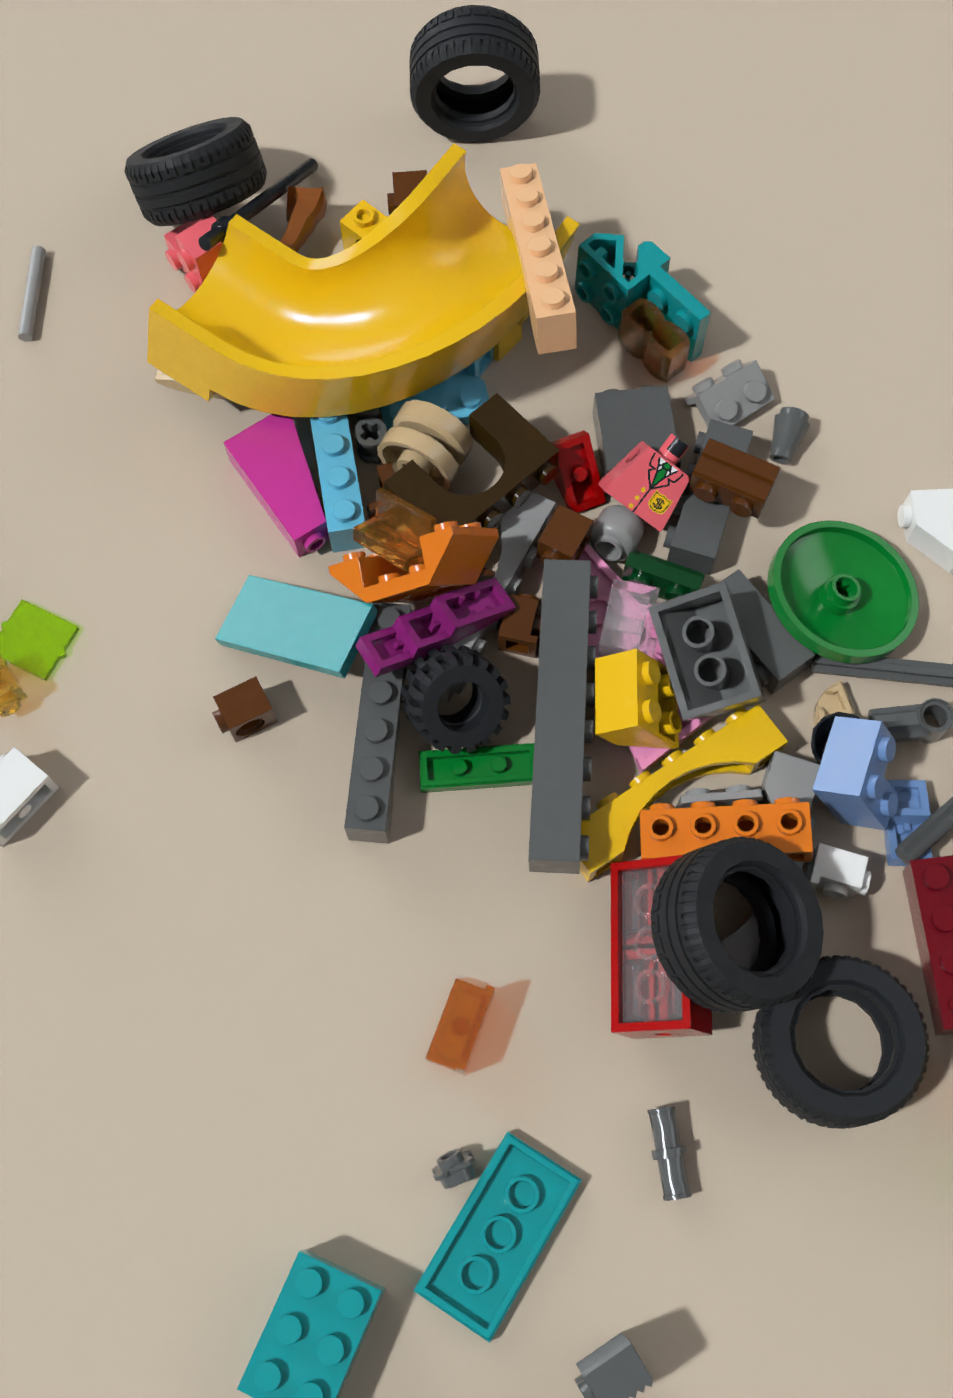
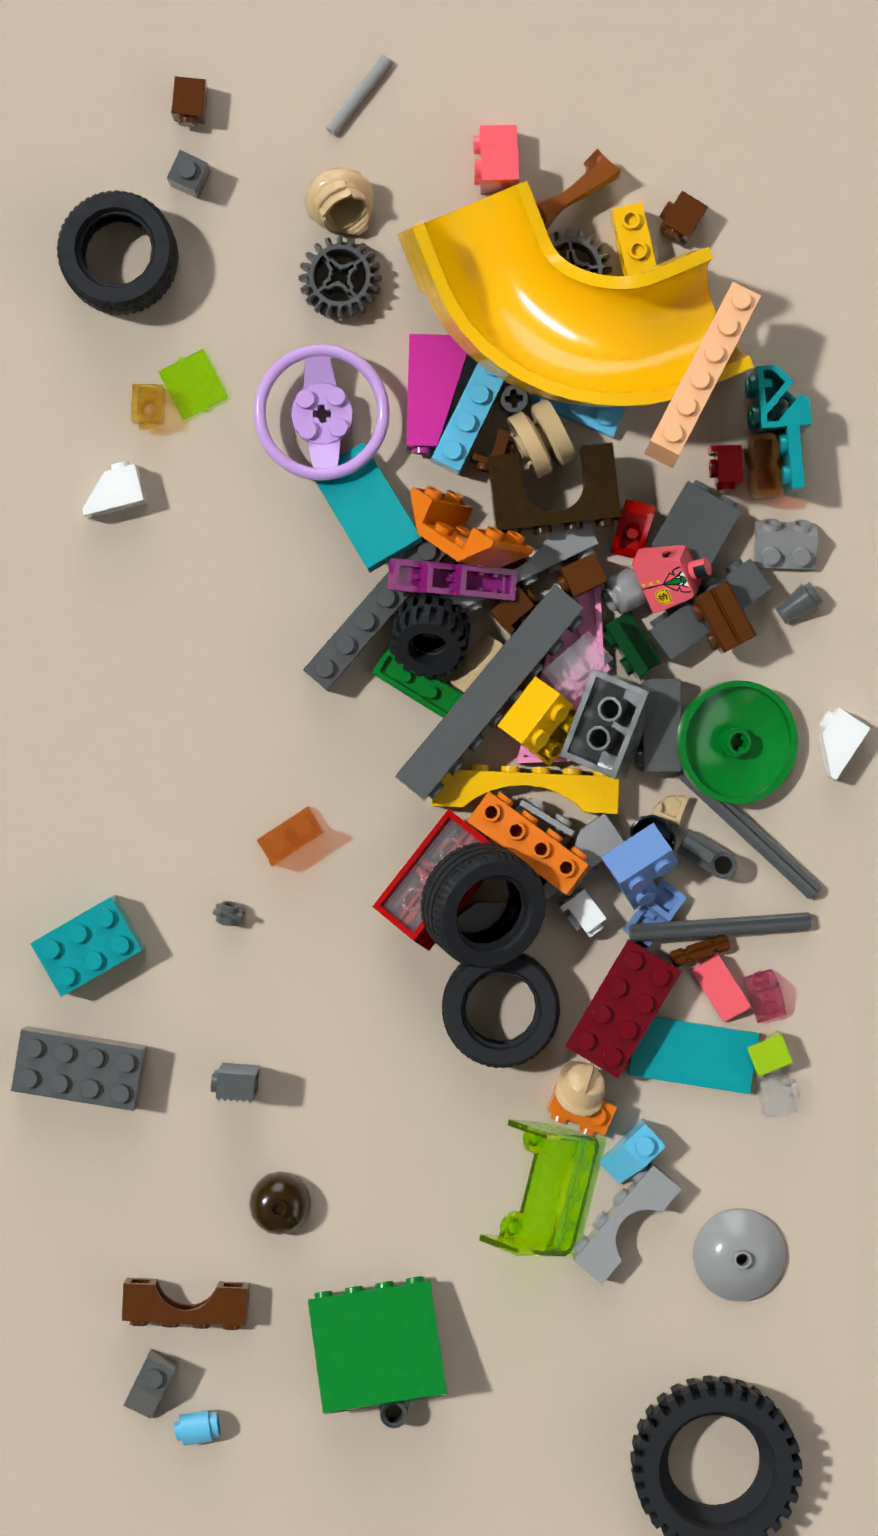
camera: 35 degrees right, 20 degrees up
(72, 379) = (340, 201): none -> tan helmet
(125, 457) = (329, 287): none -> dark grey gear
(176, 556) = (317, 393): none -> lavender piece
(196, 171) = (528, 123): black tyre -> none
(243, 710) = (295, 539): reddish brown brick -> none
(258, 204) = (518, 173): black bar -> none
(395, 530) = (472, 496): clear orange panel -> none
(474, 38) = (796, 158): black tyre -> none
(497, 1236) = (228, 966): teal tile -> none
(523, 700) = (475, 662): none -> tan slope
(618, 363) = (726, 466): none -> red brick
(669, 1153) = (357, 994): dark grey pin -> none

